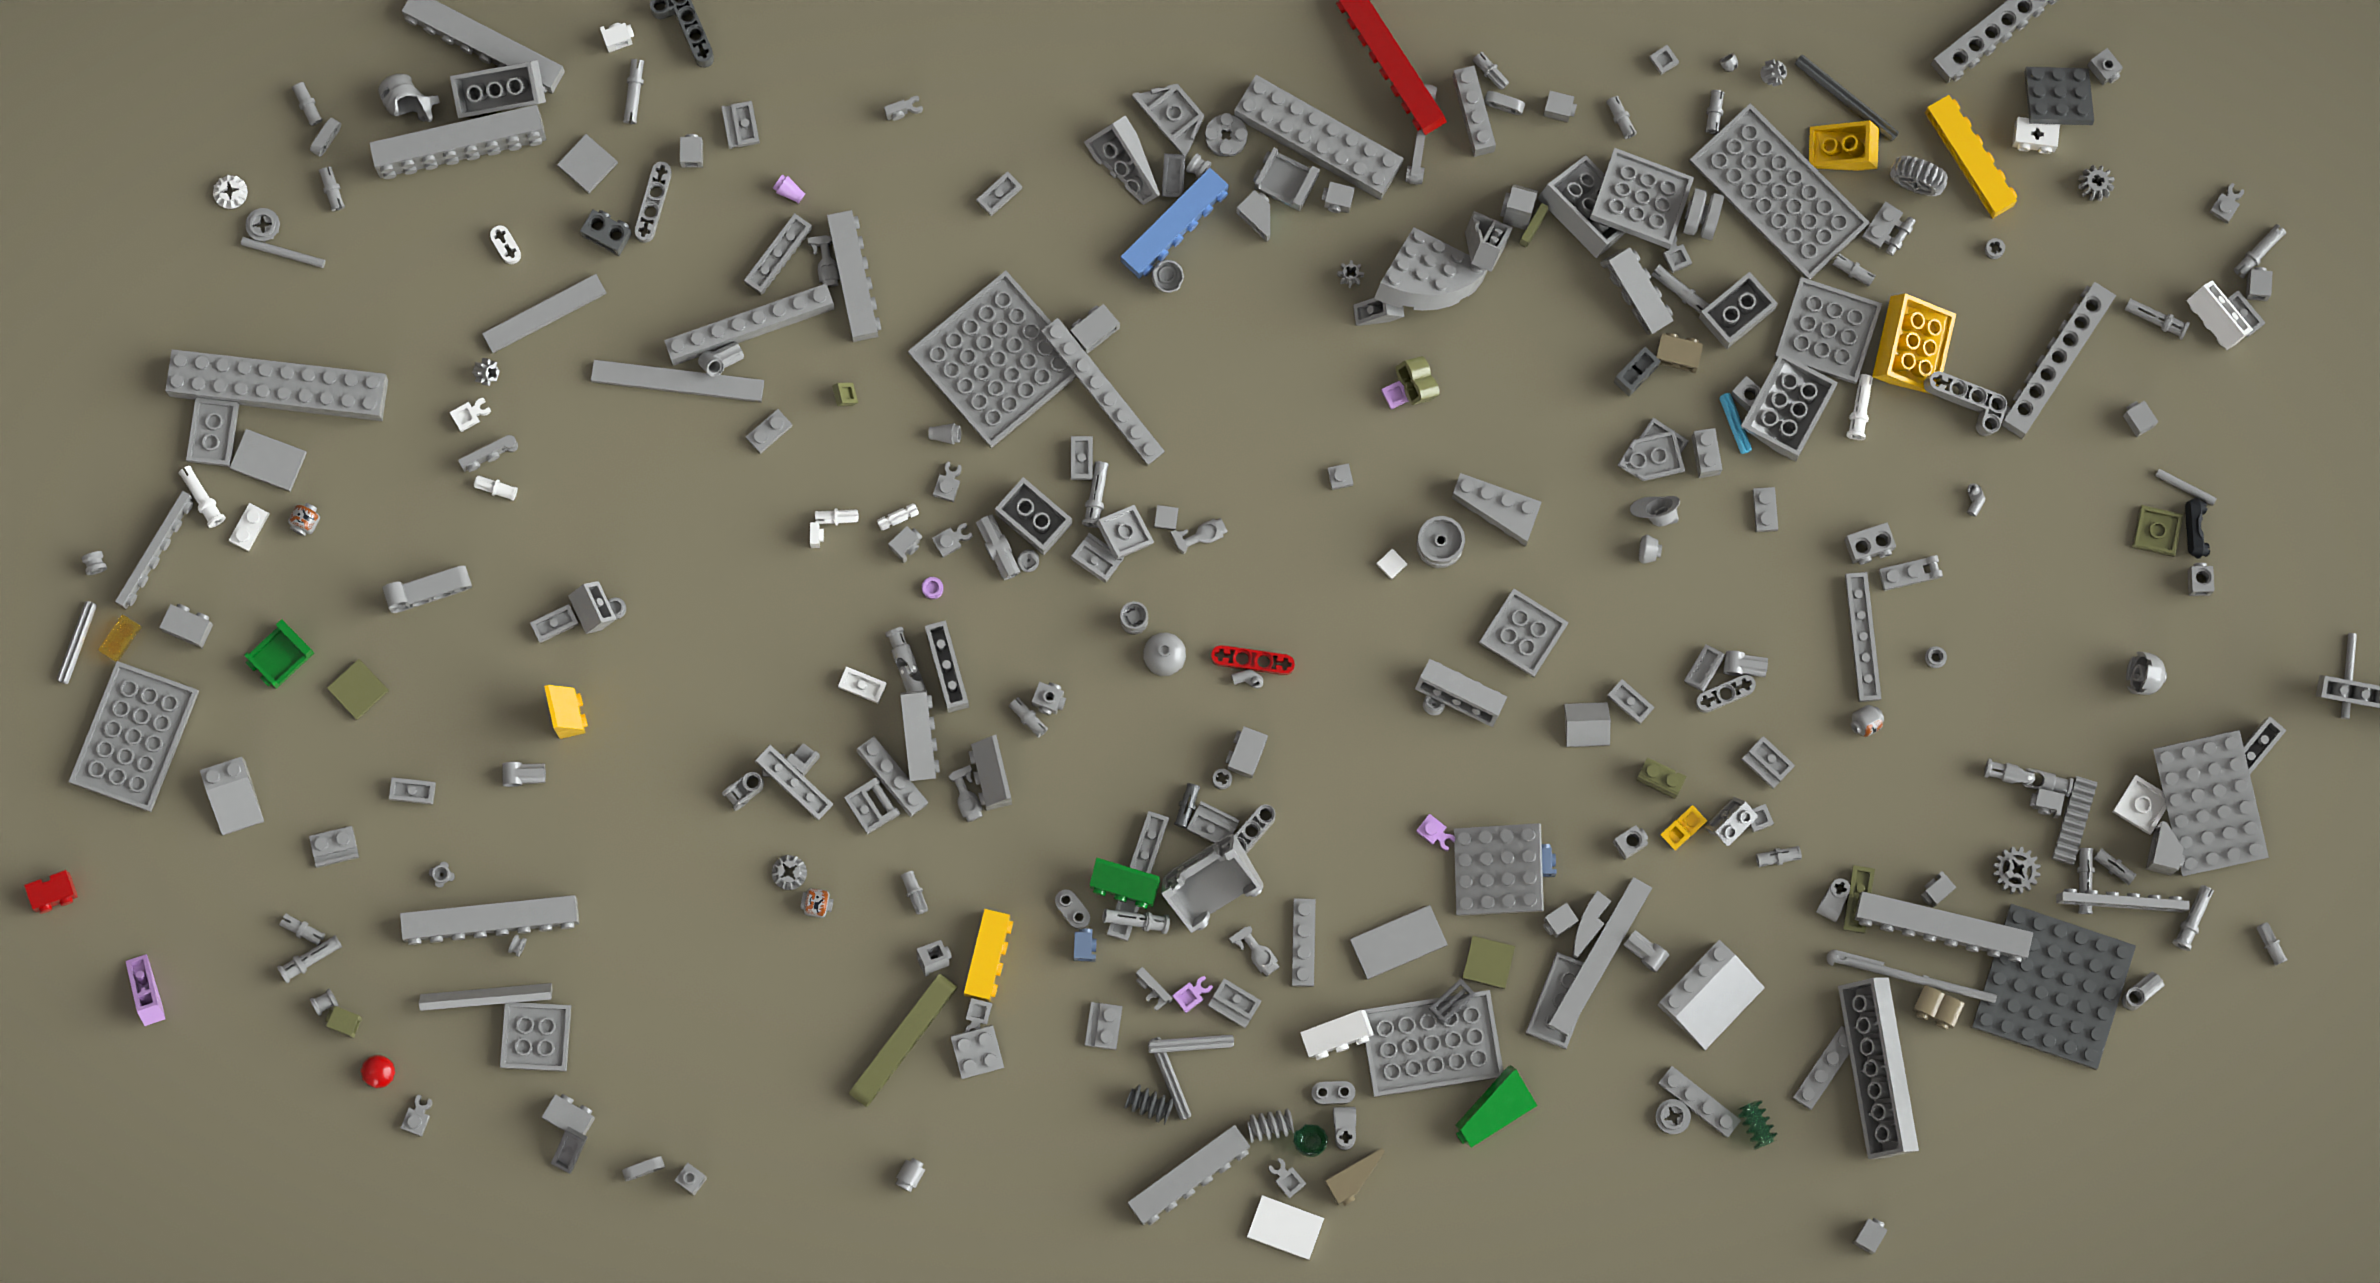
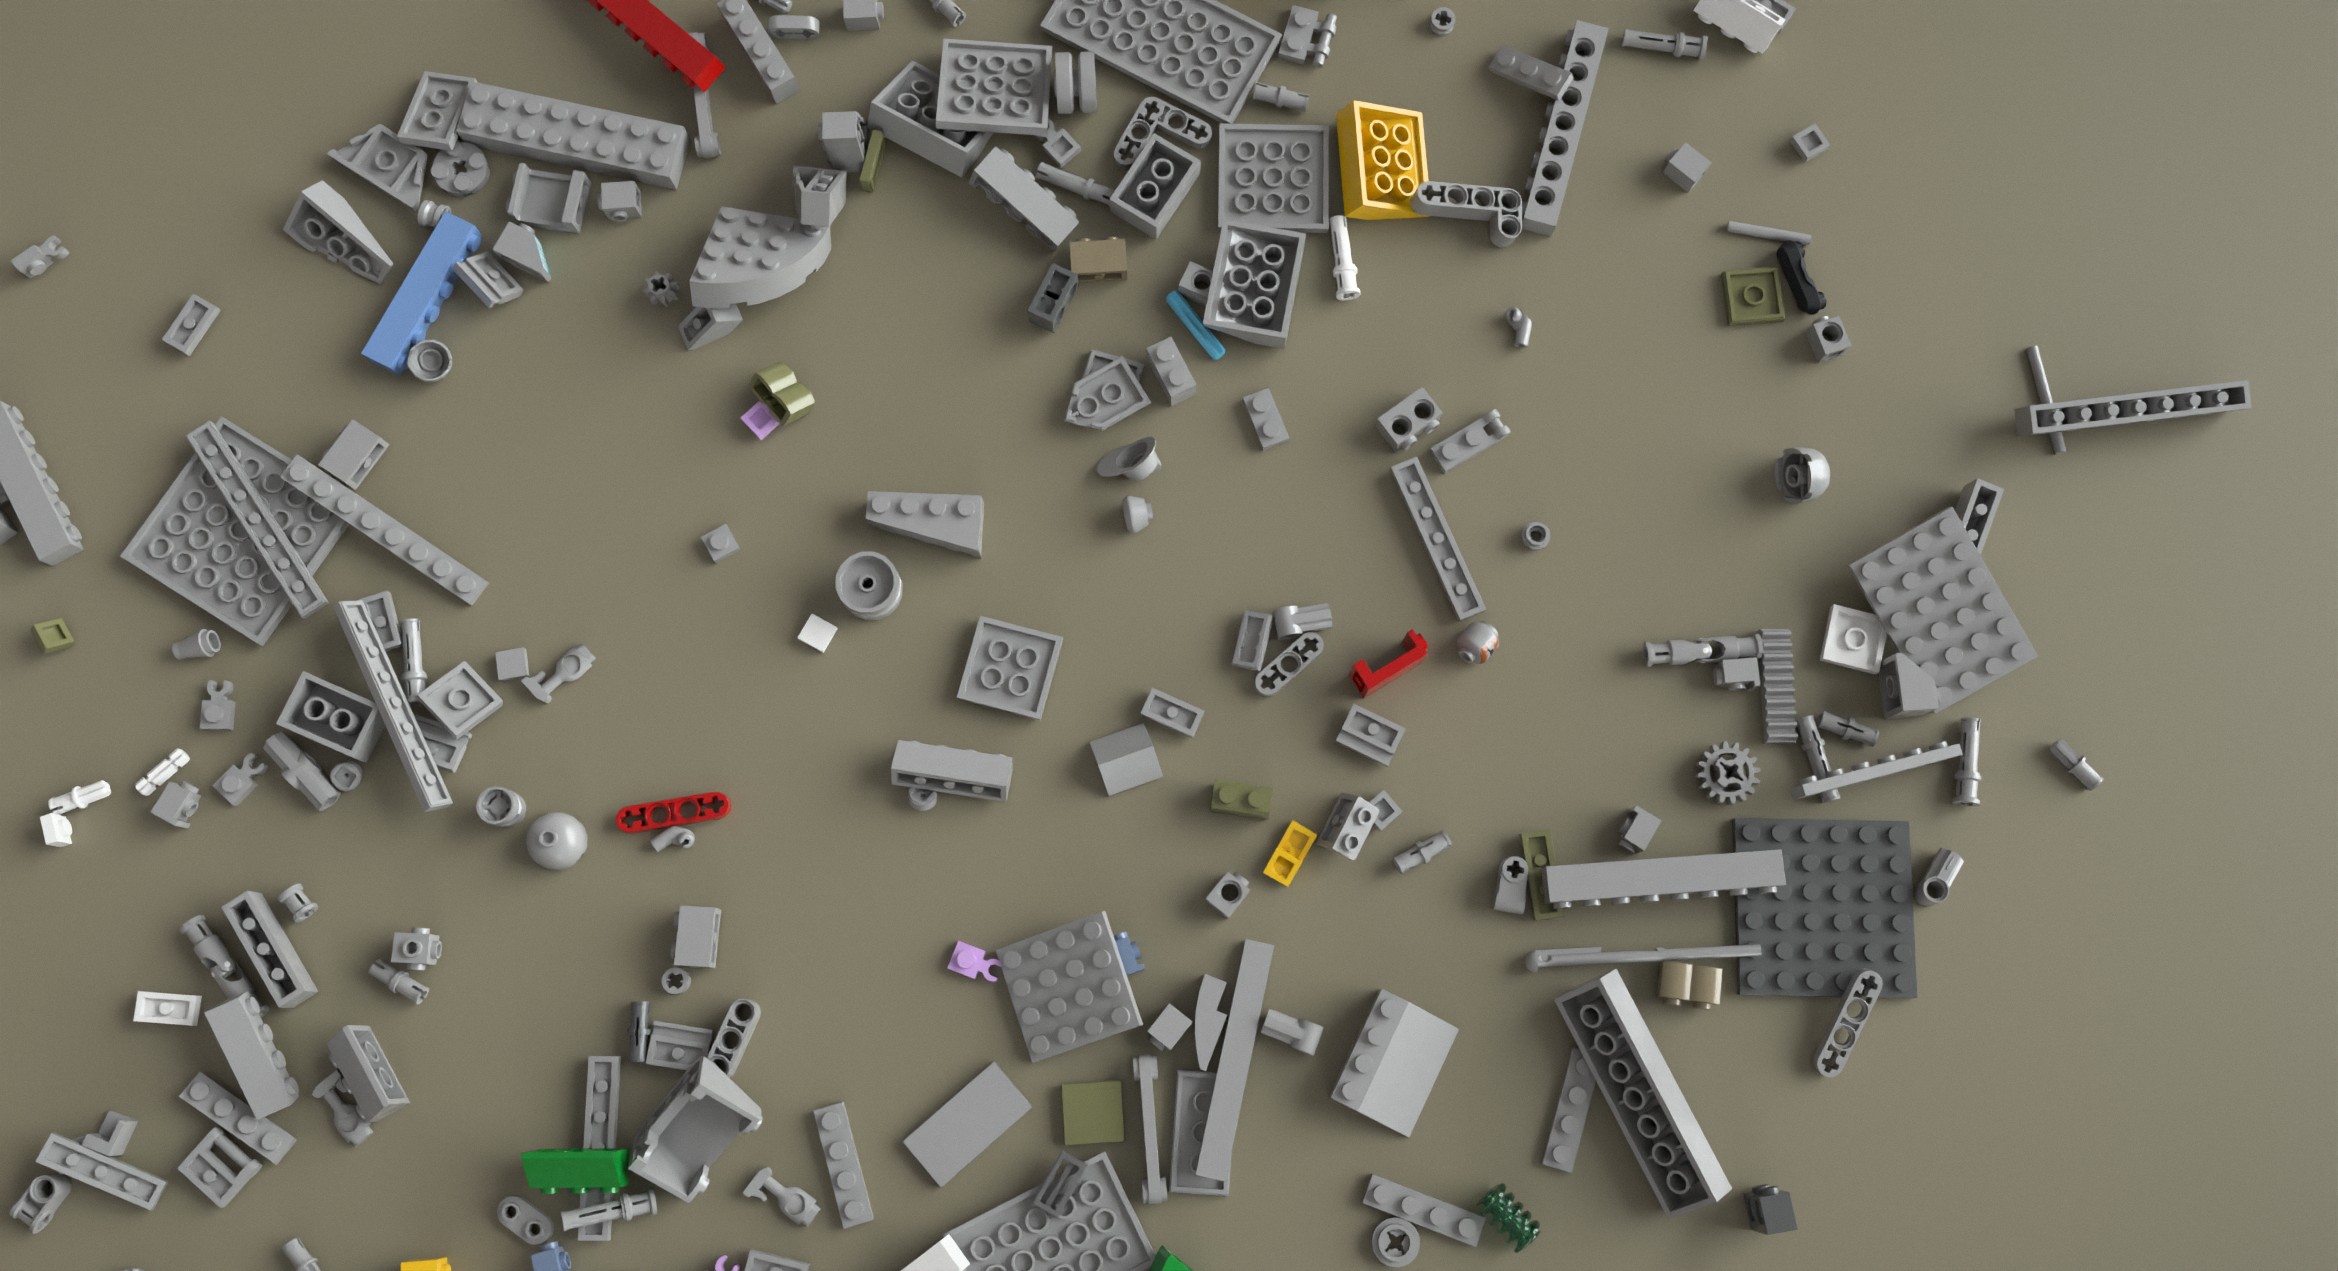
camera: 15 degrees left, 0 degrees up
(932, 588) = (231, 850): lavender tile -> none
(971, 640) = (298, 903): none -> light grey bush
(1013, 355) = (257, 520): none -> light grey tile
(1079, 521) = (393, 705): none -> light grey tile
(1173, 175) = (404, 234): flat silver tile -> none
(1223, 87) = (435, 111): none -> light grey plate
(1226, 227) = (488, 279): none -> light grey plate
(1516, 1025) = (1154, 1187): none -> light grey piece
(1756, 260) = (1159, 121): none -> light grey beam
(1781, 725) = (1370, 682): none -> red panel
(1941, 1175) = (1770, 1210): none -> dark grey brick
(2038, 1066) = (1853, 1024): none -> light grey beam
(2047, 310) = (1531, 72): none -> light grey plate
(2240, 428) = (1809, 142): none -> light grey plate

